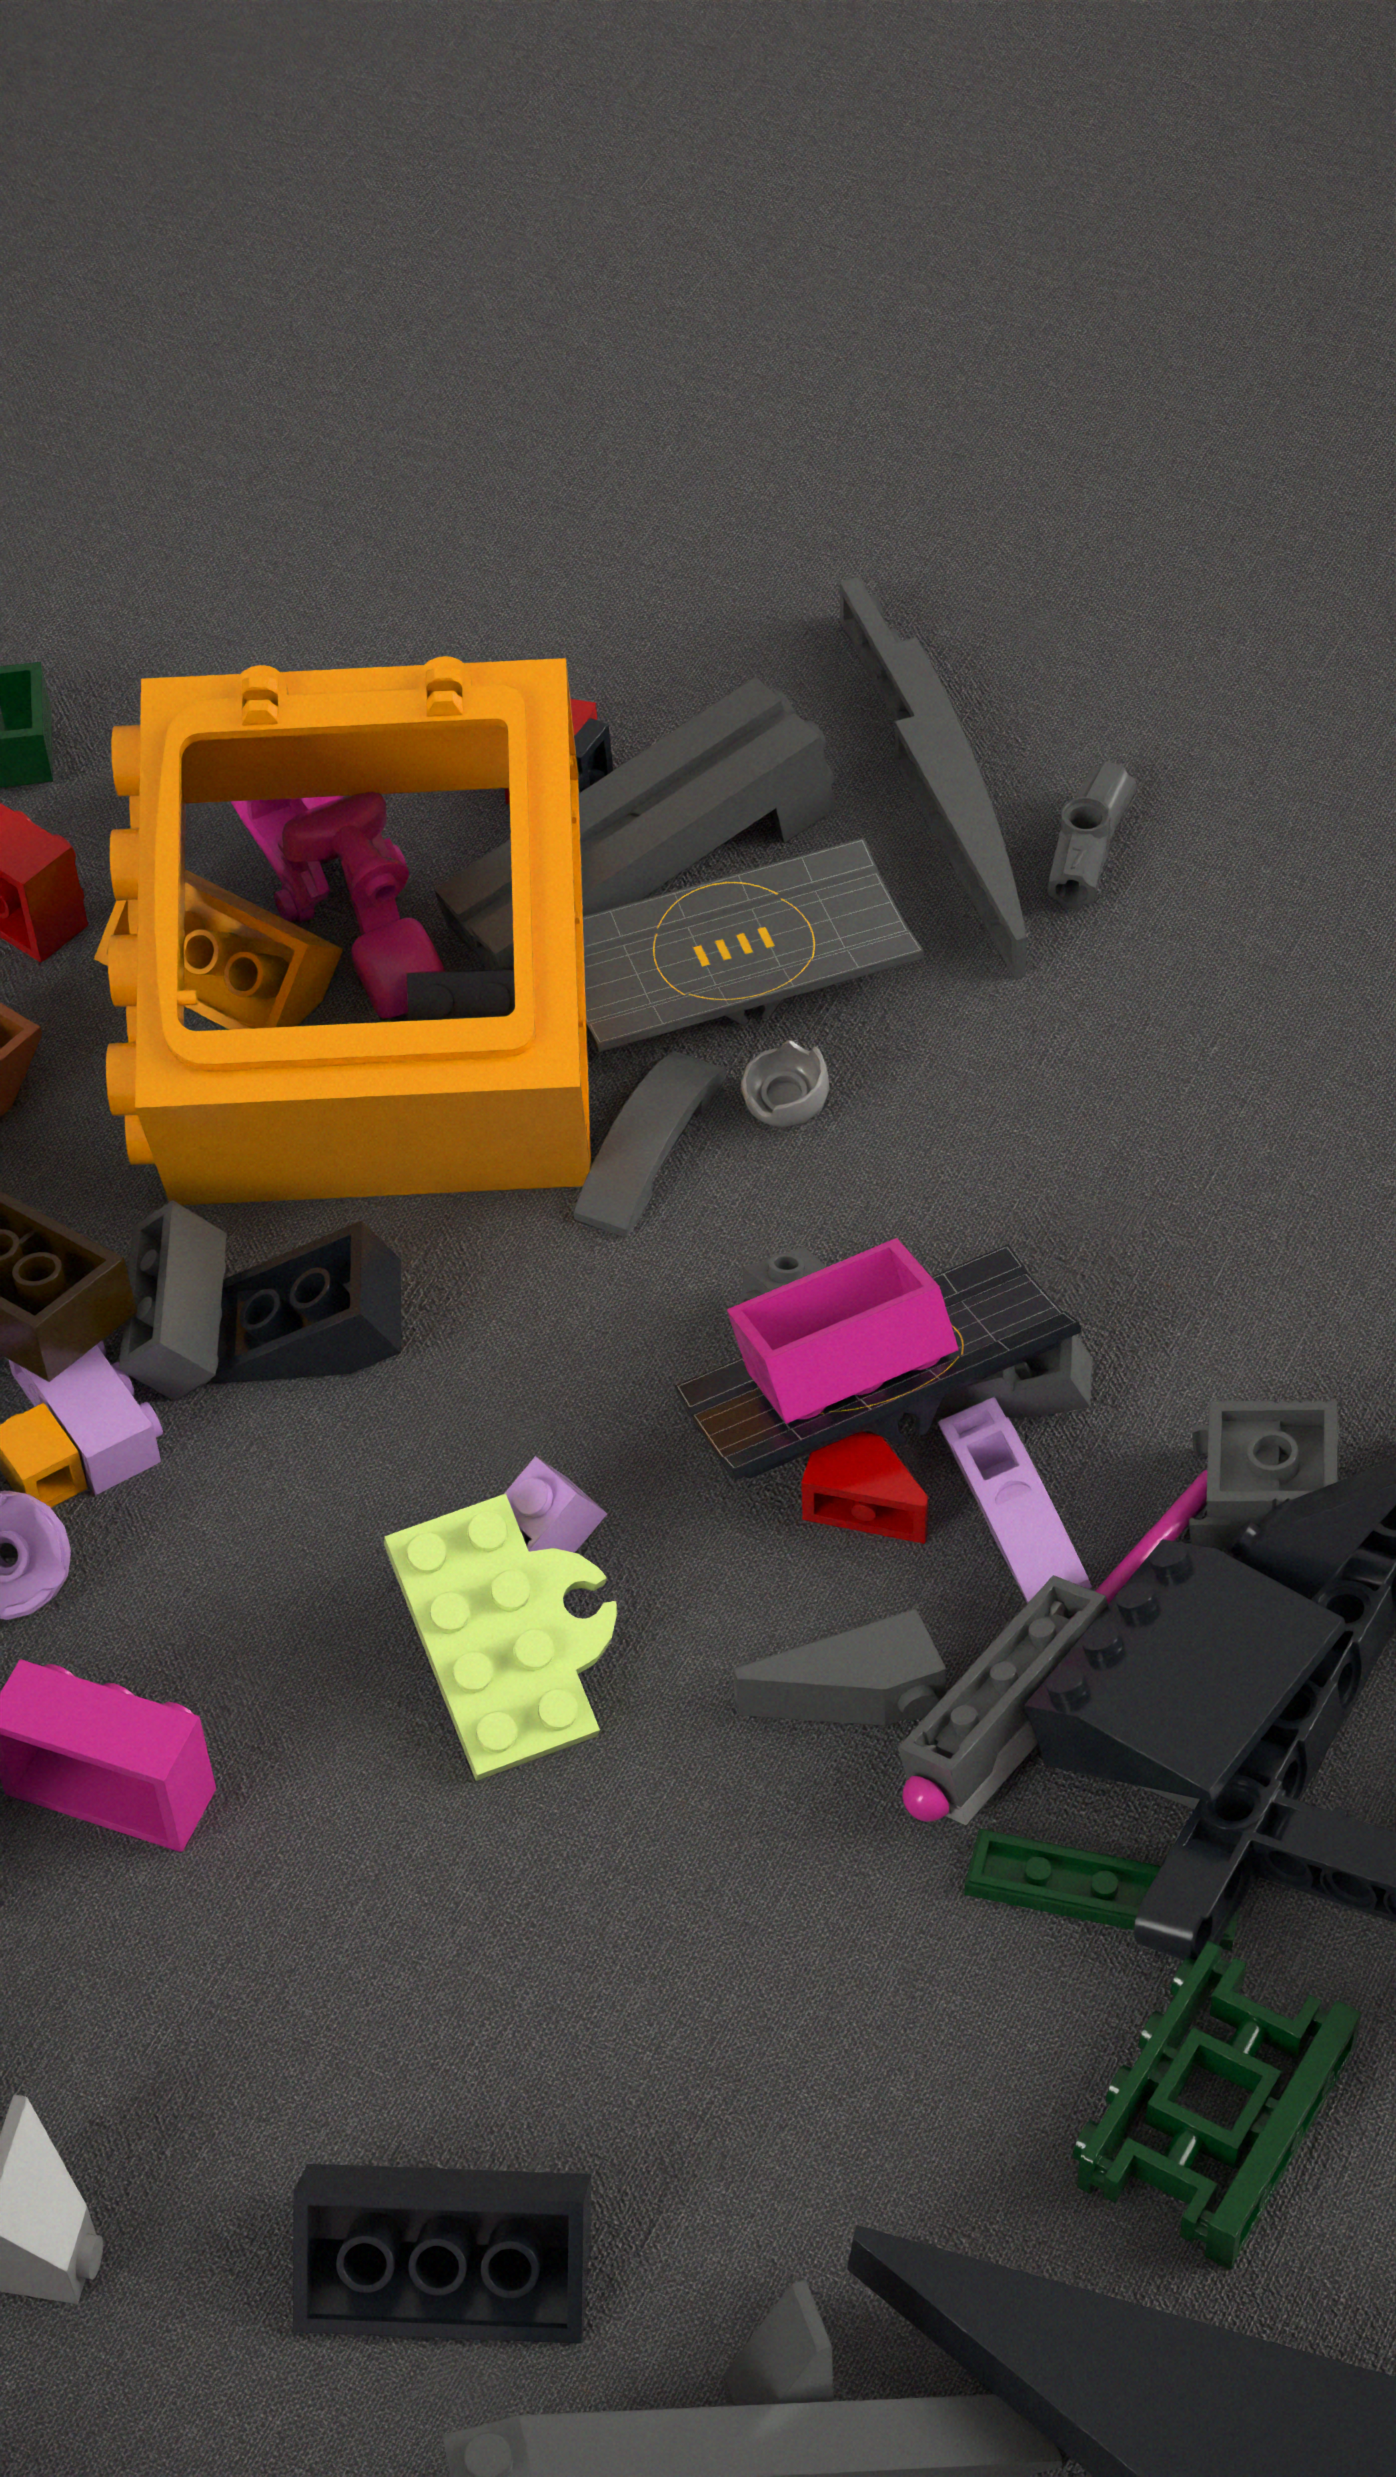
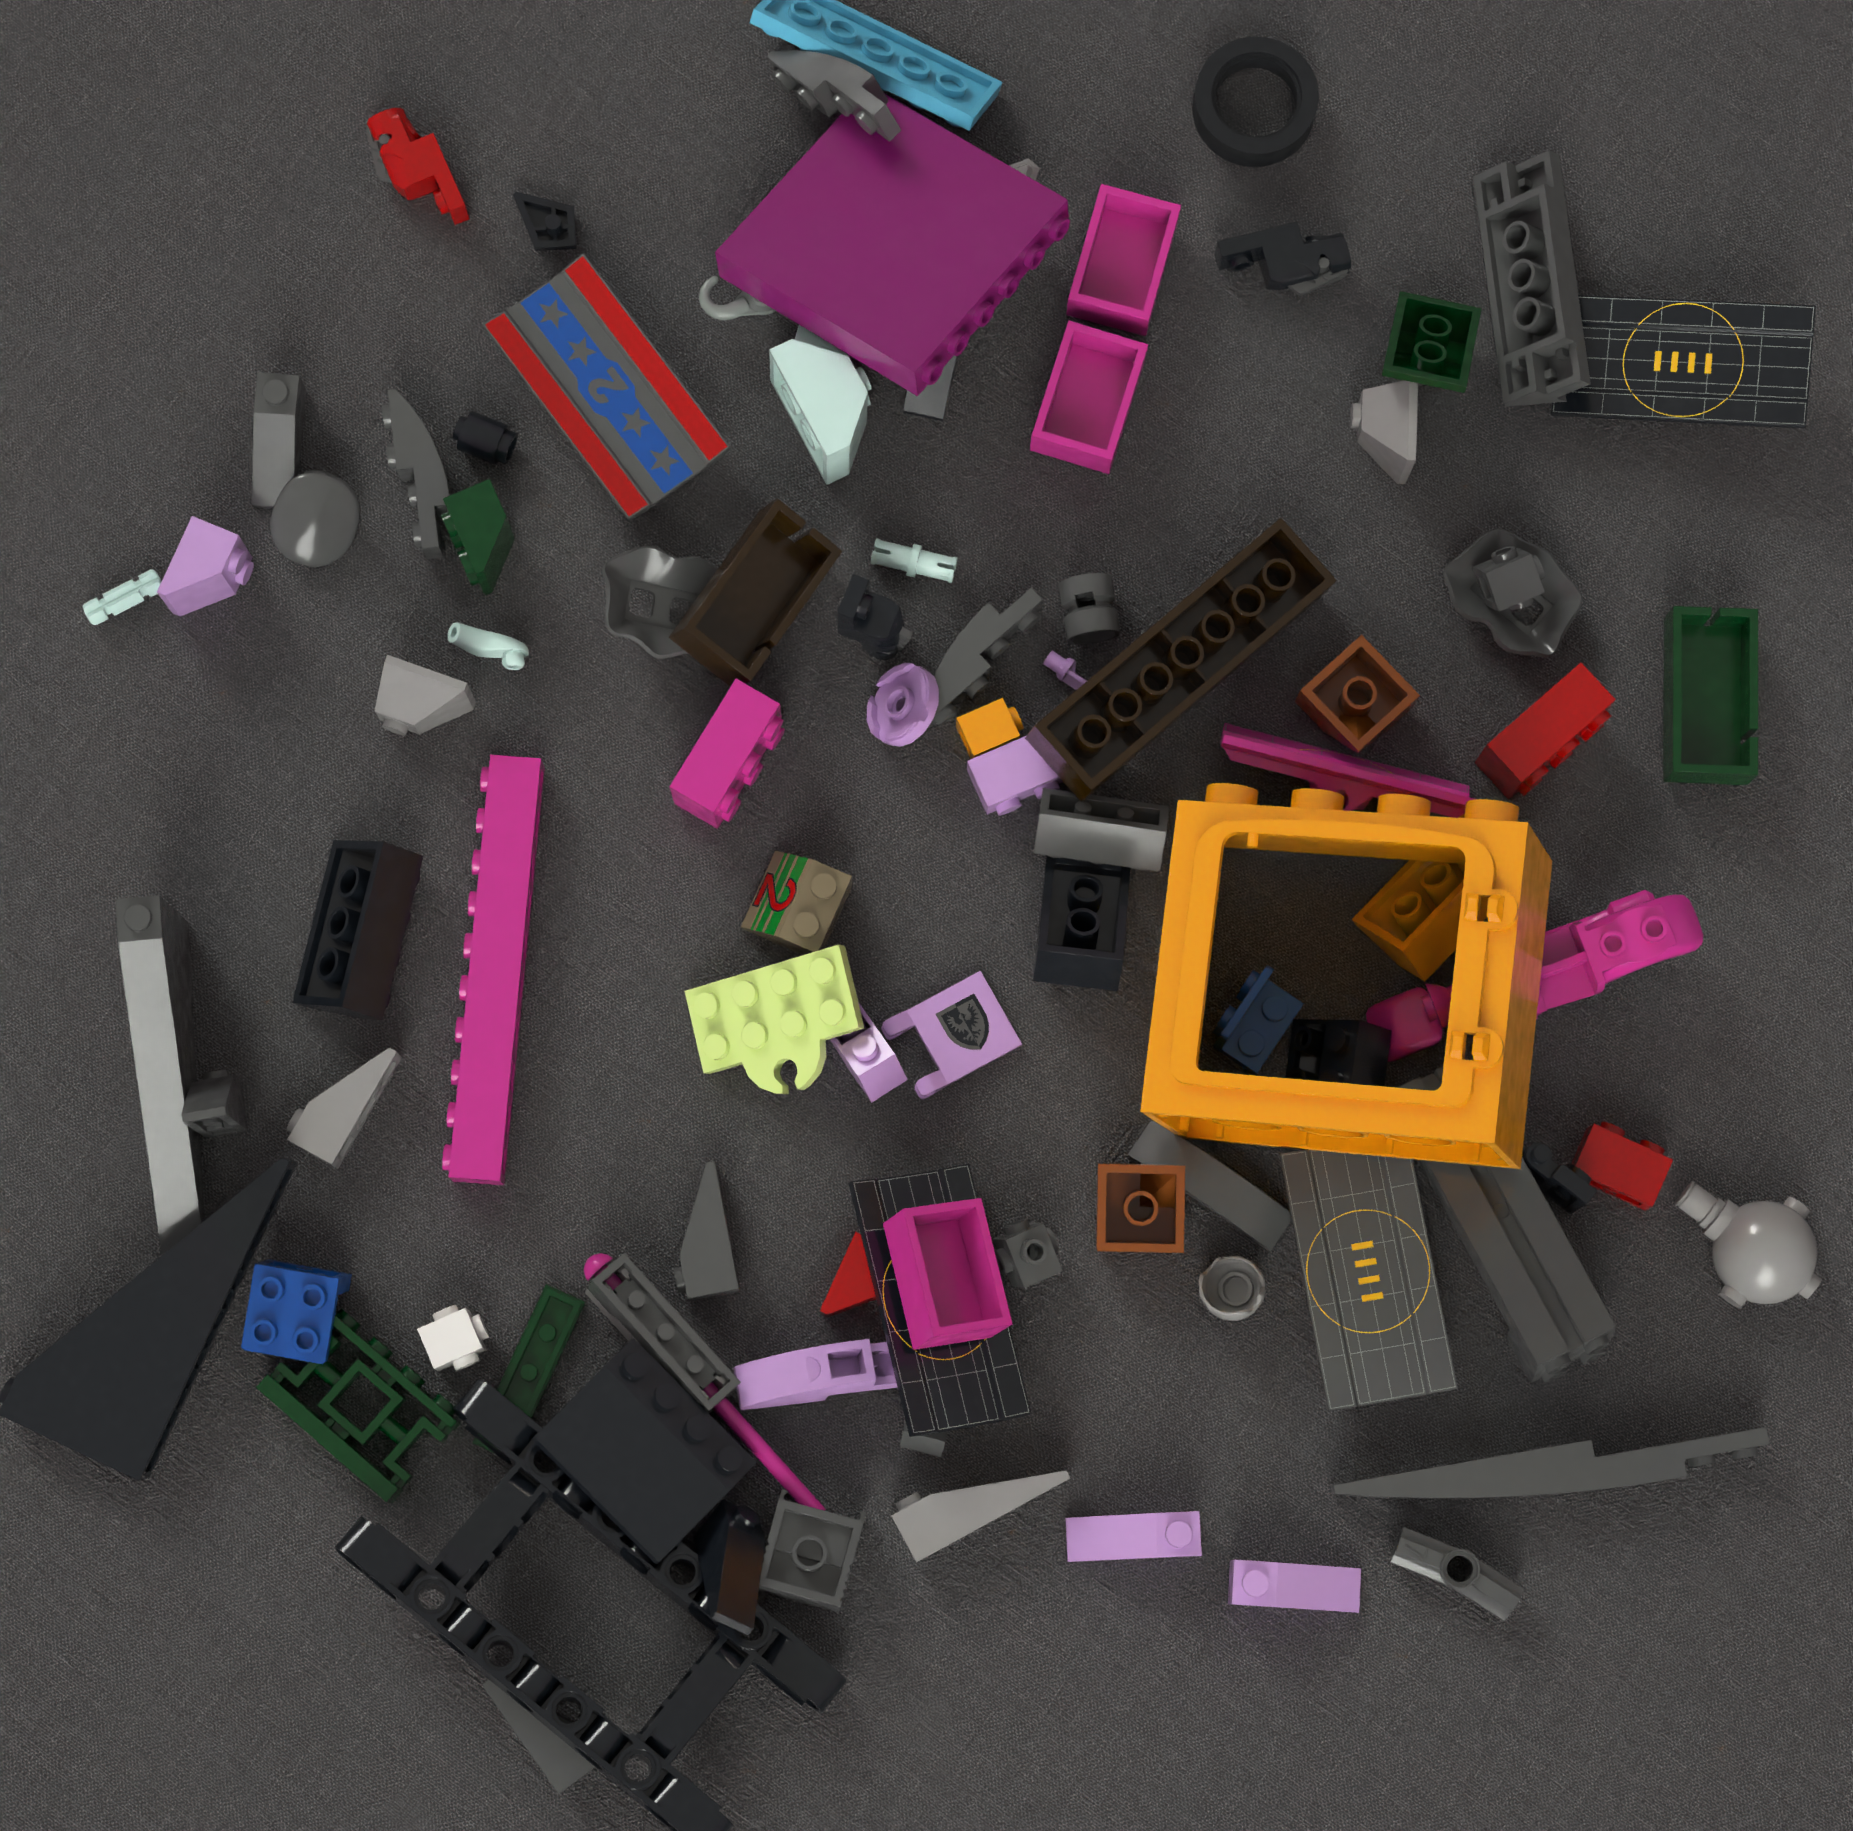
camera: 95 degrees right, 30 degrees up
(77, 1041) = (1342, 773): none -> dark pink hinge
(323, 1646) = (797, 903): none -> dark tan slope
(478, 2031) = (495, 970): none -> dark pink brick
(485, 1436) = (959, 1029): none -> lavender flag
(626, 626) = (1758, 1249): none -> light grey piece
(700, 1181) = (1140, 1208): none -> dark orange slope
(756, 2217) = (337, 1114): none -> light grey slope
(1081, 1987) = (454, 1338): none -> white brick
(1095, 2207) = (292, 1310): none -> blue bracket
(1137, 1137) = (1133, 1536): none -> lavender slope
(1156, 992) = (1294, 1586): none -> lavender slope
(1171, 1335) = (948, 1516): none -> light grey slope

